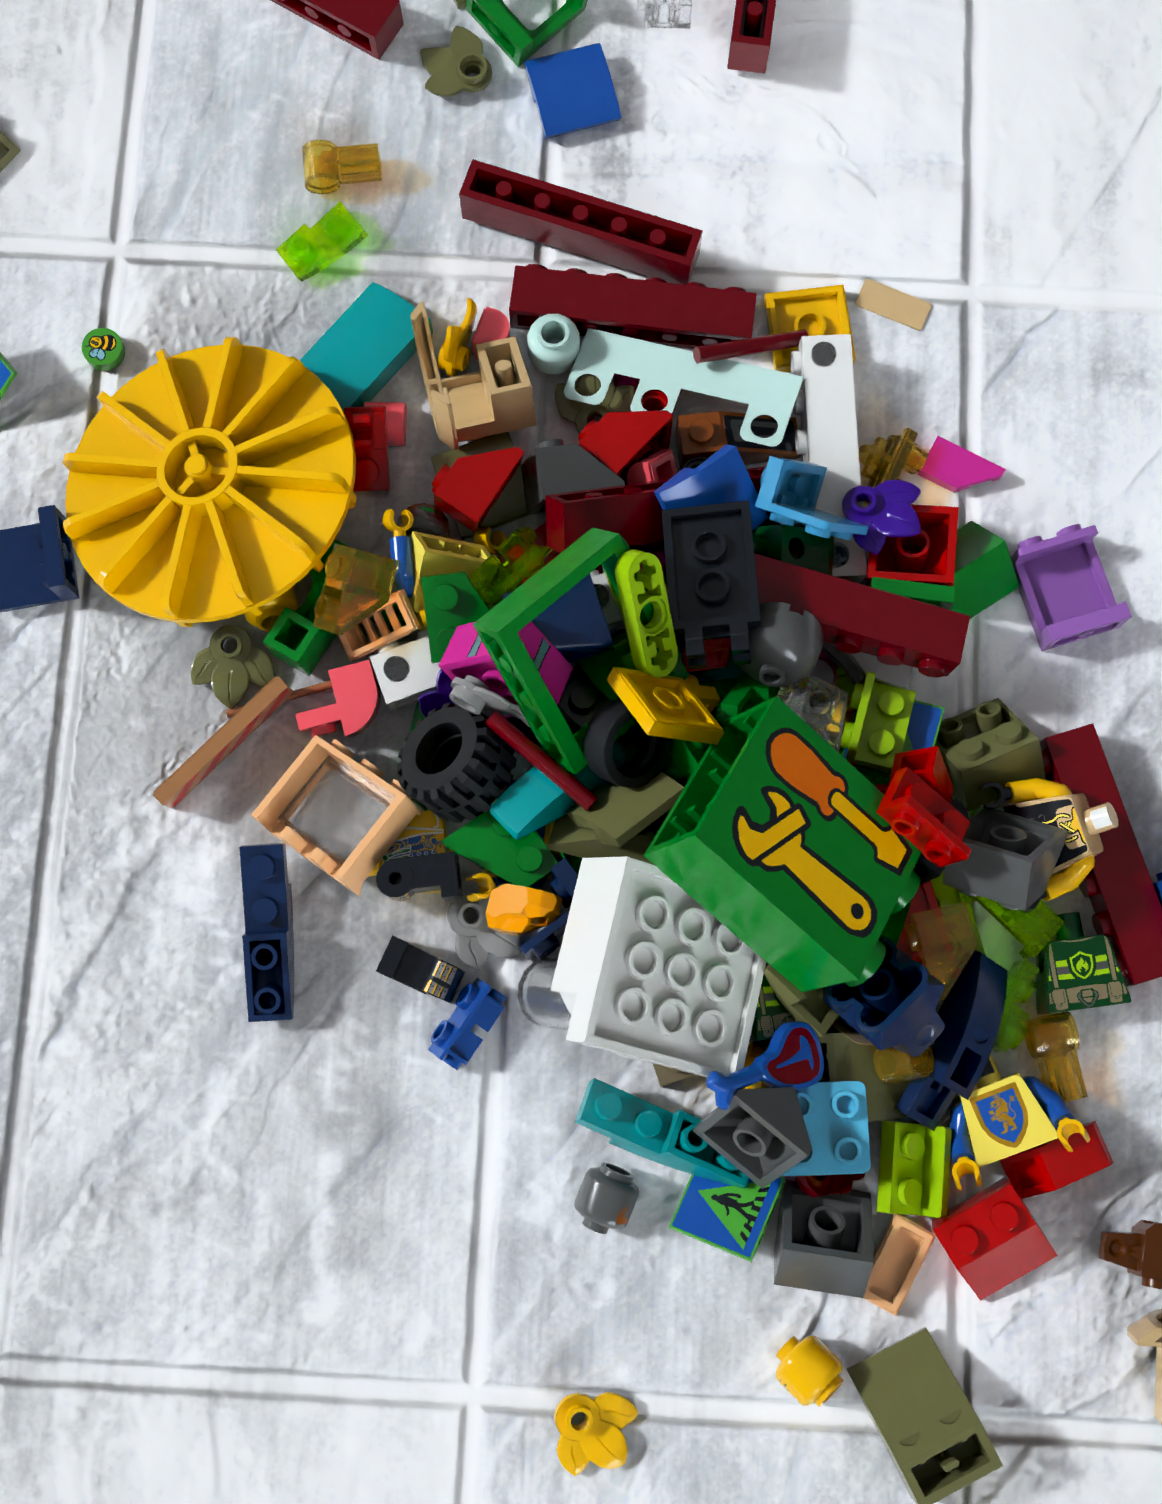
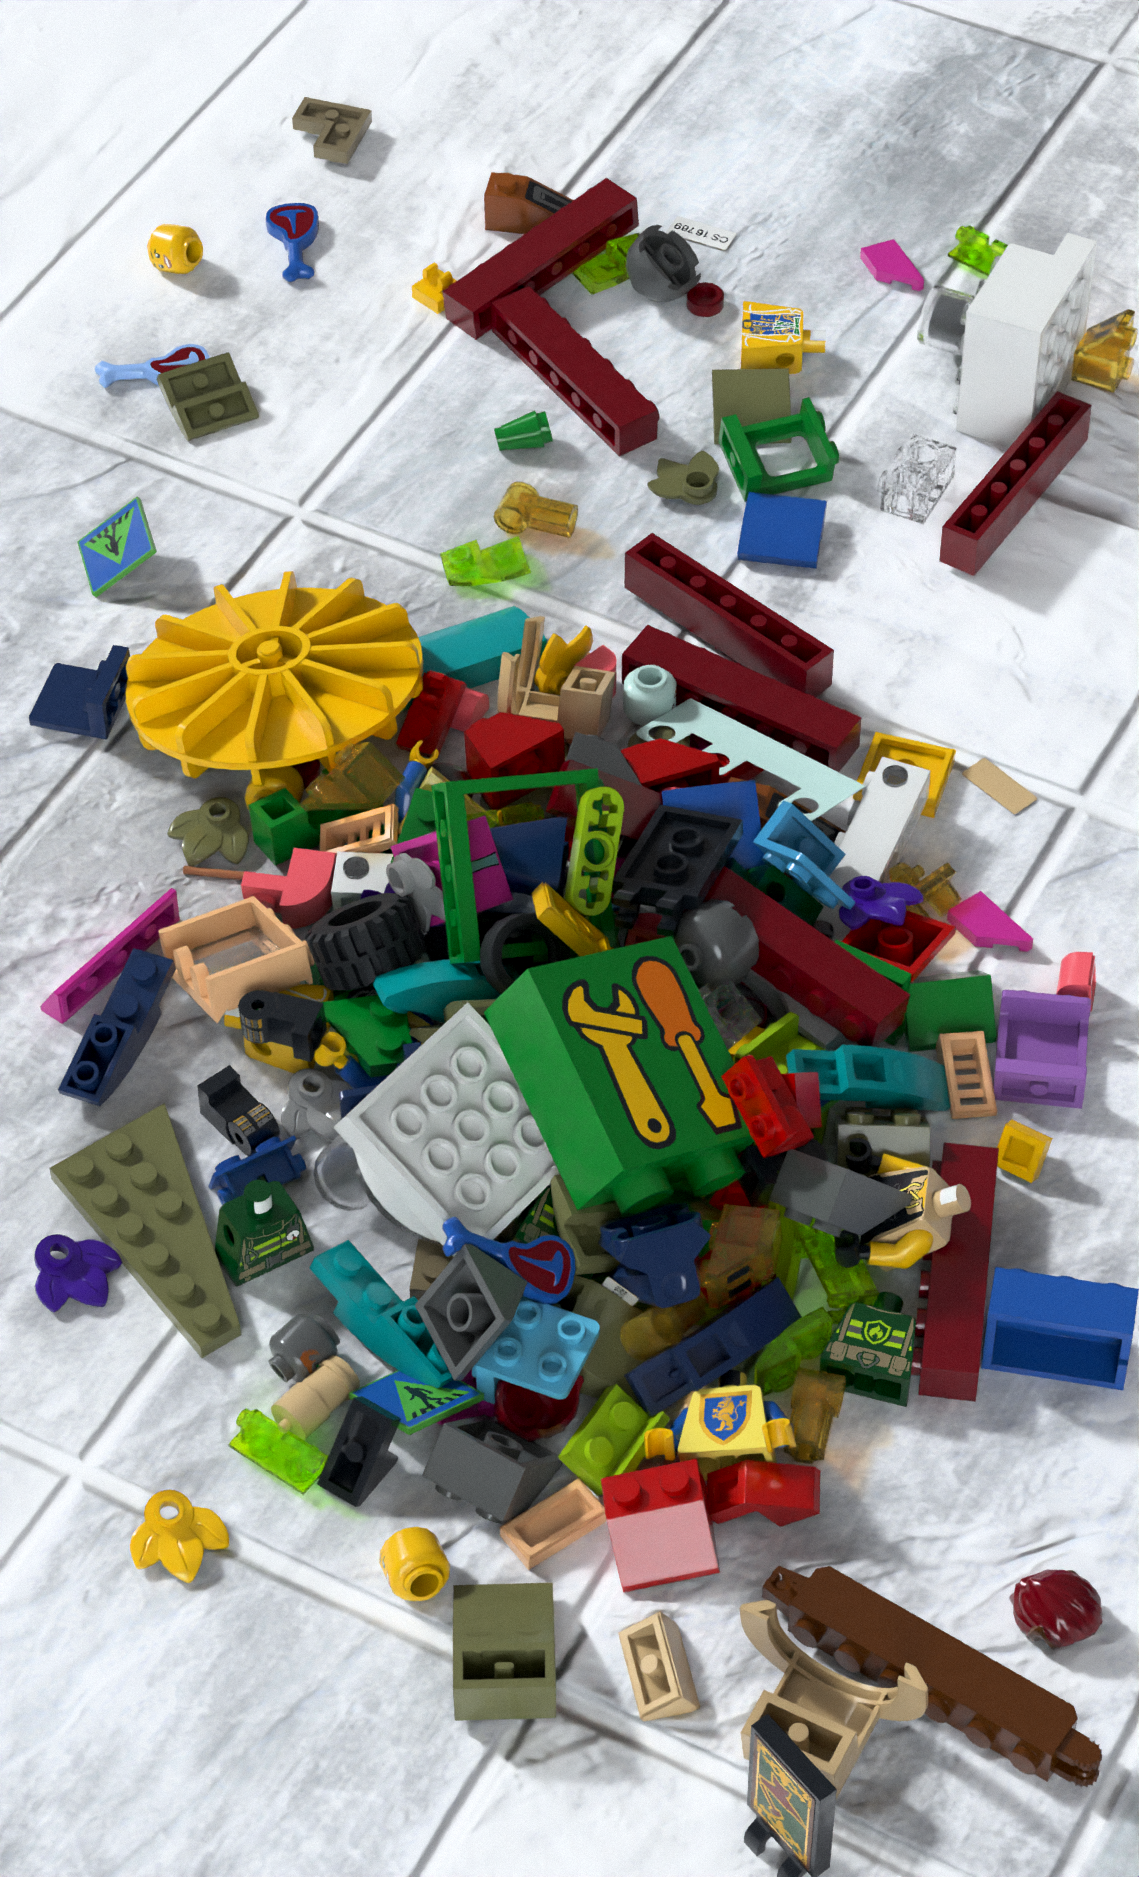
camera: 25 degrees right, 30 degrees down
(103, 349) = (242, 573): bright green tile -> none
(215, 846) = (111, 959): none -> dark pink slope
(223, 742) = (182, 873): medium nougat tile -> none
(283, 71) = (524, 432): none -> green cone
(368, 1205) = (76, 1276): none -> dark purple plate
(388, 1104) = (146, 1209): none -> olive wing
(510, 1095) = (260, 1232): none -> dark green torso
(521, 909) = (354, 1070): light orange rock -> none
(541, 760) = (441, 947): dark red bar -> none
(636, 1303) = (278, 1453): none -> clear neon green hinge
(640, 1242) = (315, 1398): none -> tan piece
(708, 1284) = (360, 1452): none -> black slope
(748, 346) = (823, 750): dark red bar -> none
(960, 704) = (876, 1076): none -> teal slope
(1027, 634) = (962, 1045): none -> light nougat slope
(1048, 1365) = (658, 1668): none -> tan slope
(1065, 501) = (1078, 975): none -> coral brick
(1102, 705) = (1022, 1150): none -> yellow tile

